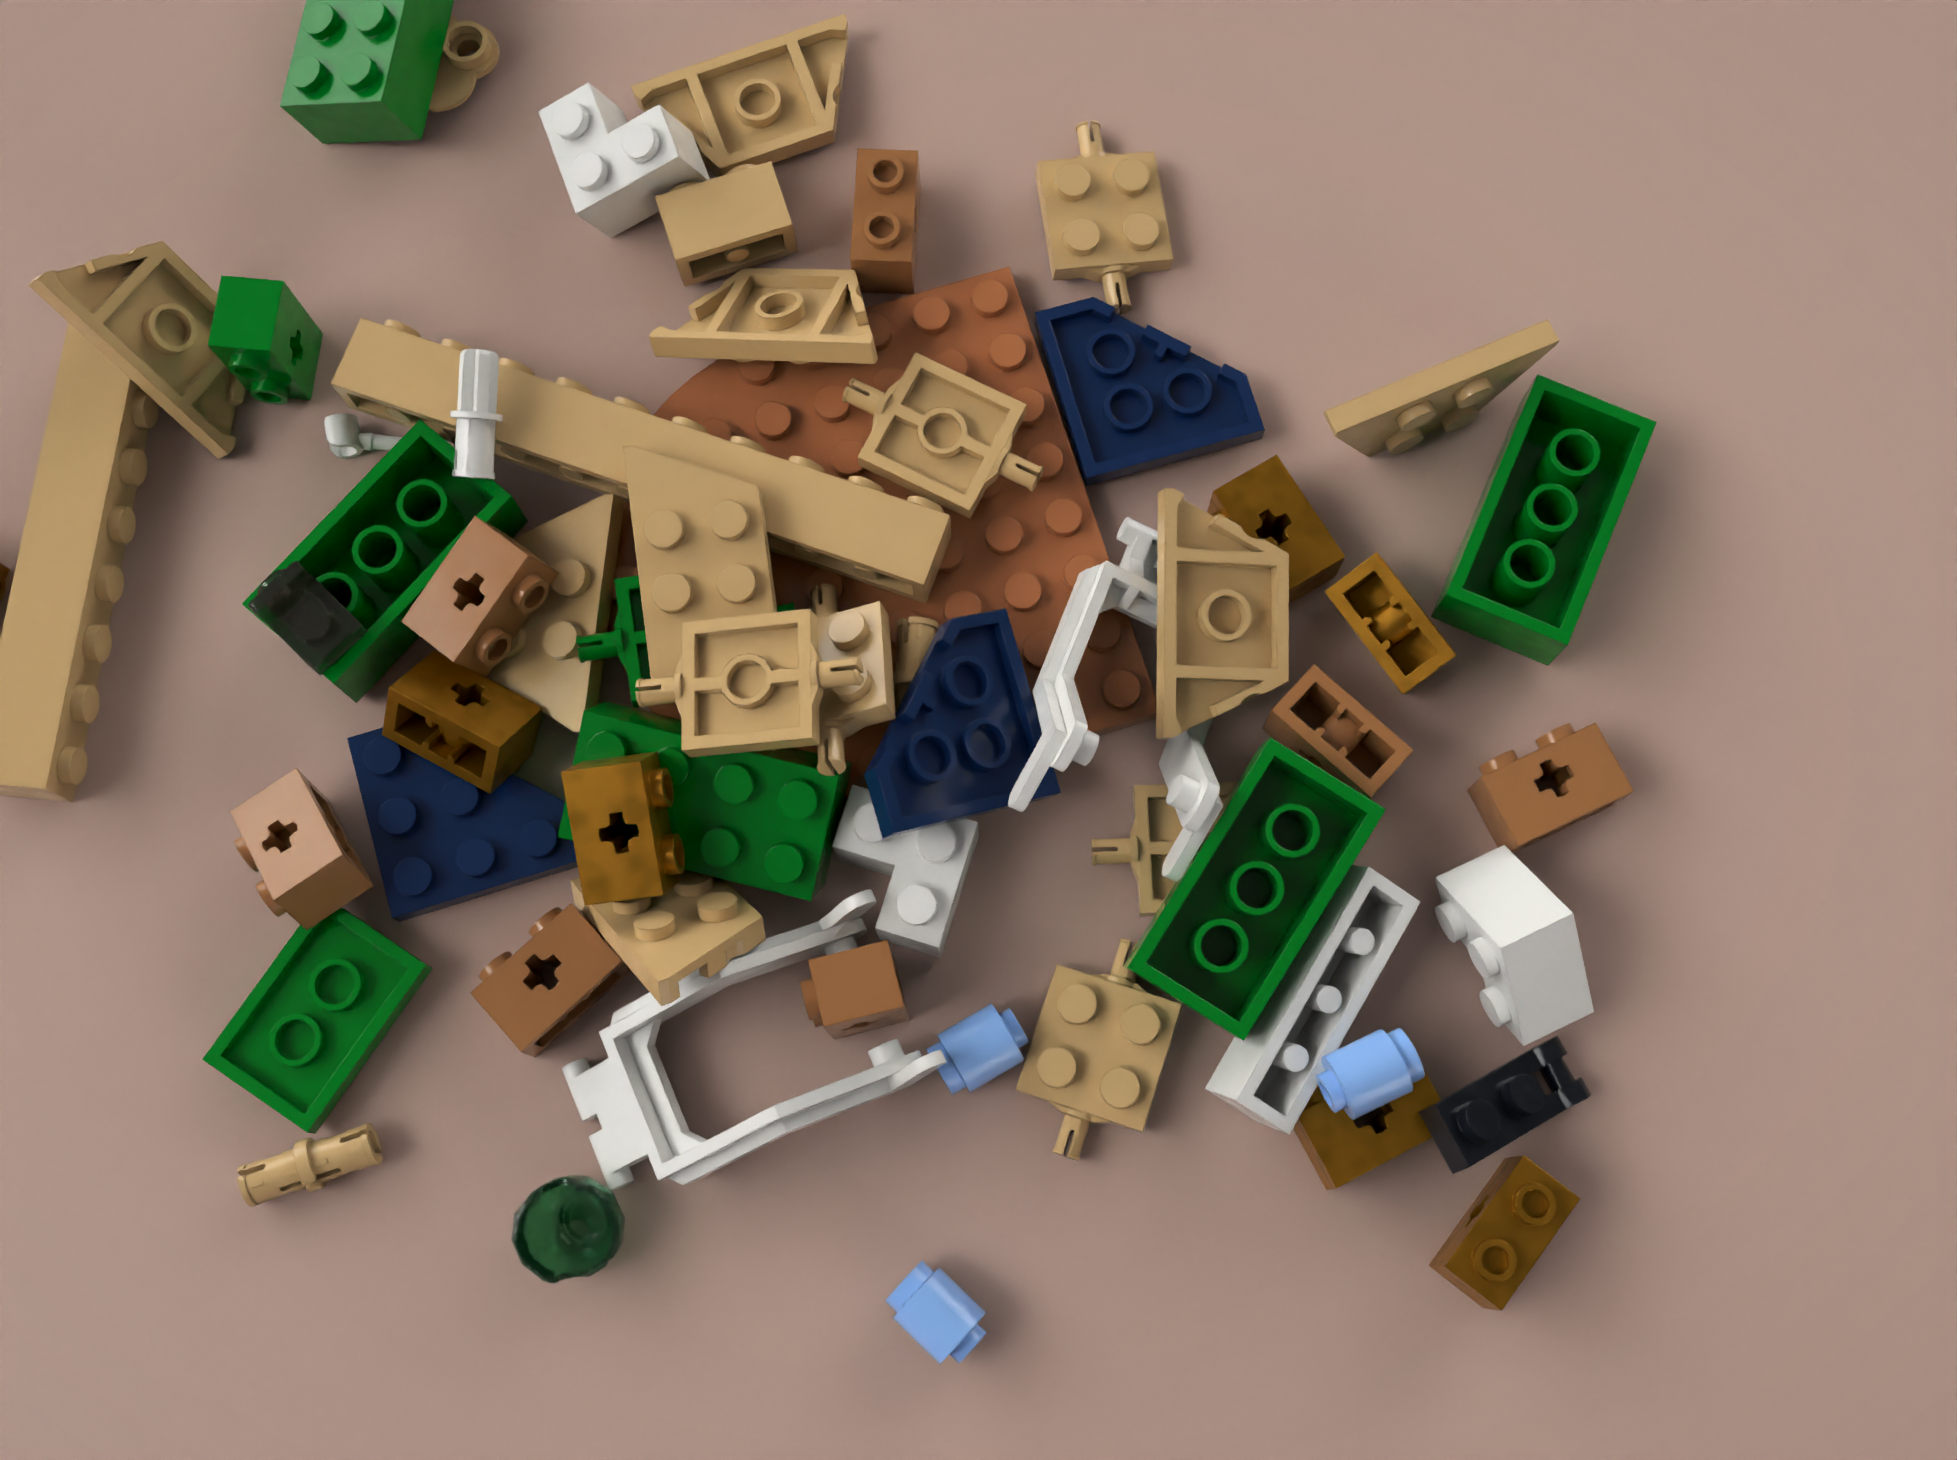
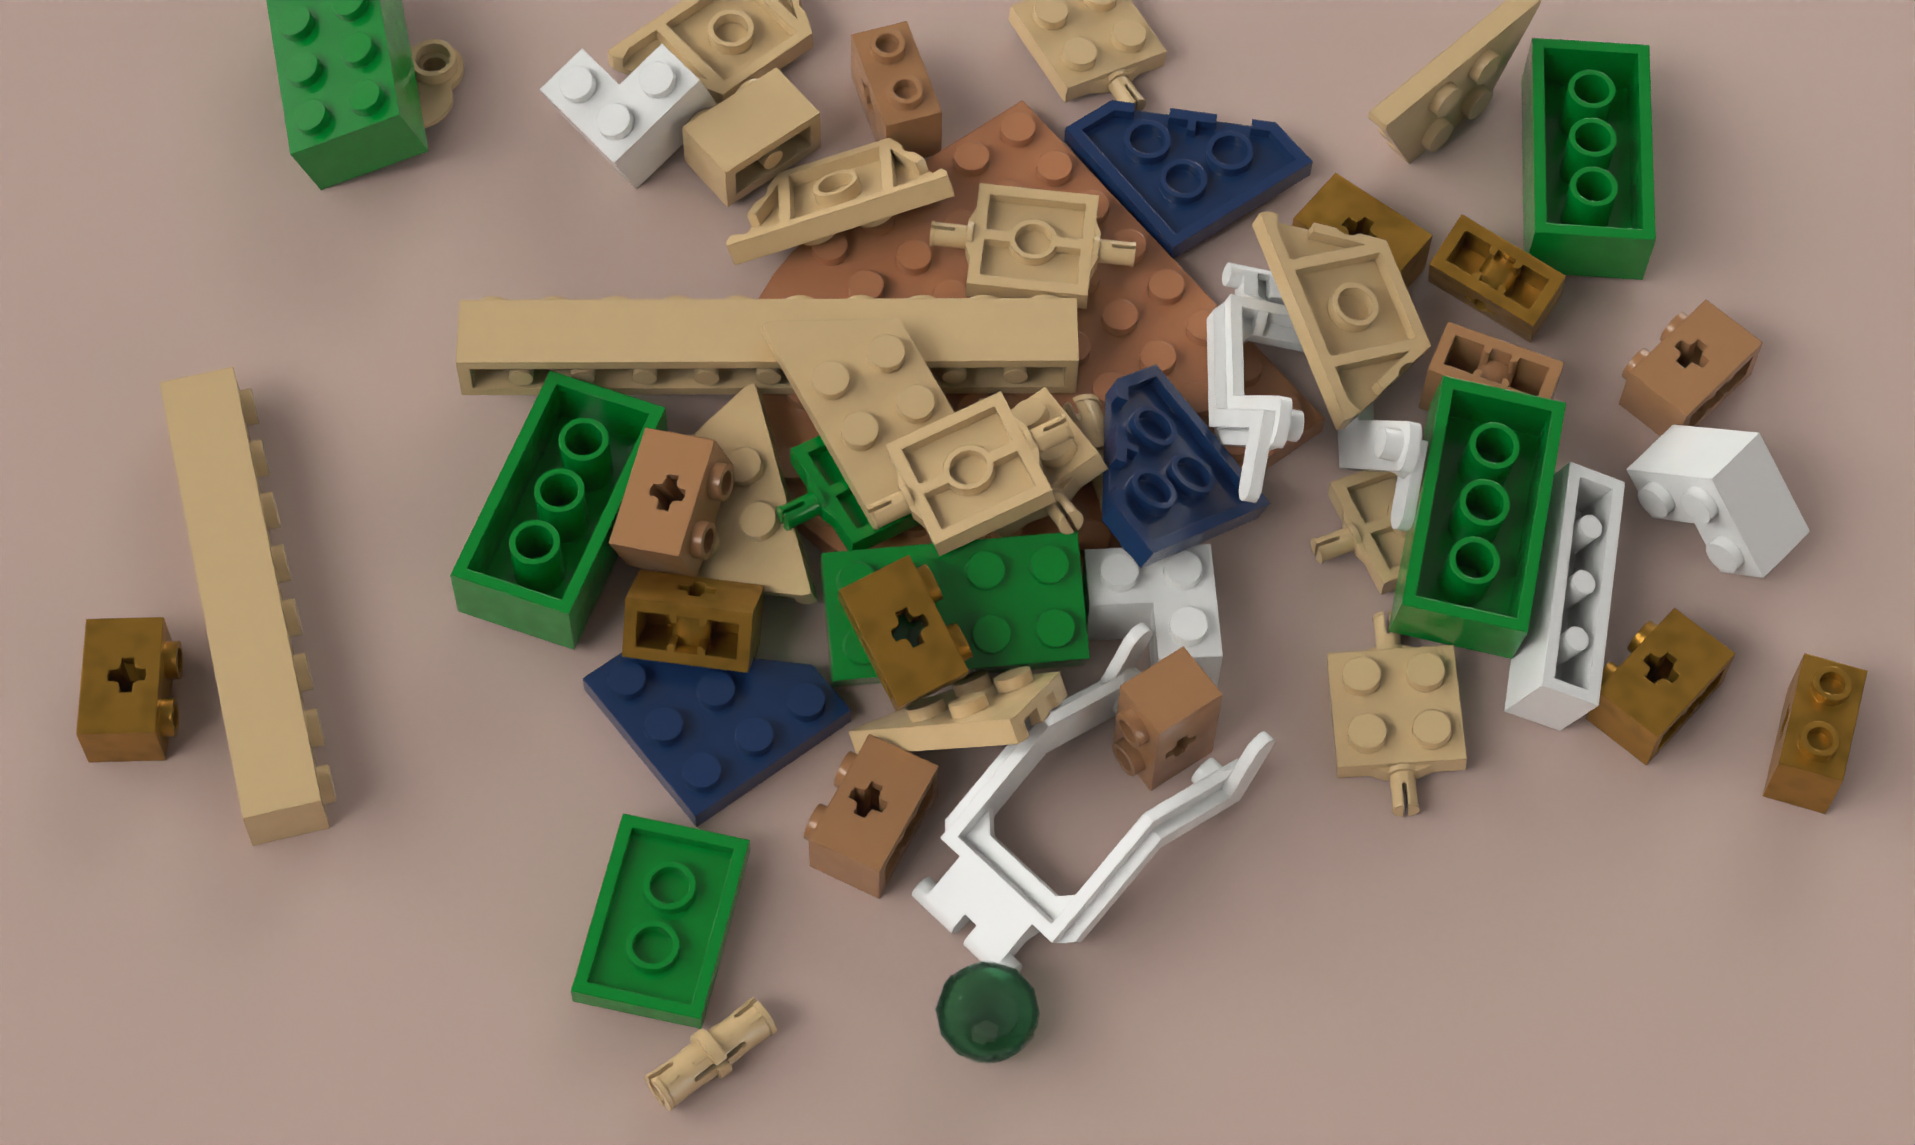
camera: 25 degrees left, 15 degrees down
(155, 326) = (265, 379): tan wing -> none
(265, 339) = (363, 354): green brick -> none
(299, 851) = (589, 775): medium nougat brick -> none
(306, 616) = (525, 560): clear smoke bracket -> none
(347, 440) = (465, 430): white hand -> none
(476, 414) = (614, 342): white axle -> none
(937, 1313) = (1353, 972): light blue brick -> none
(980, 1048) = (1301, 737): light blue brick -> none
(1370, 1072) = (1645, 624): light blue brick -> none
(1503, 1105) = (1769, 627): black plate -> none

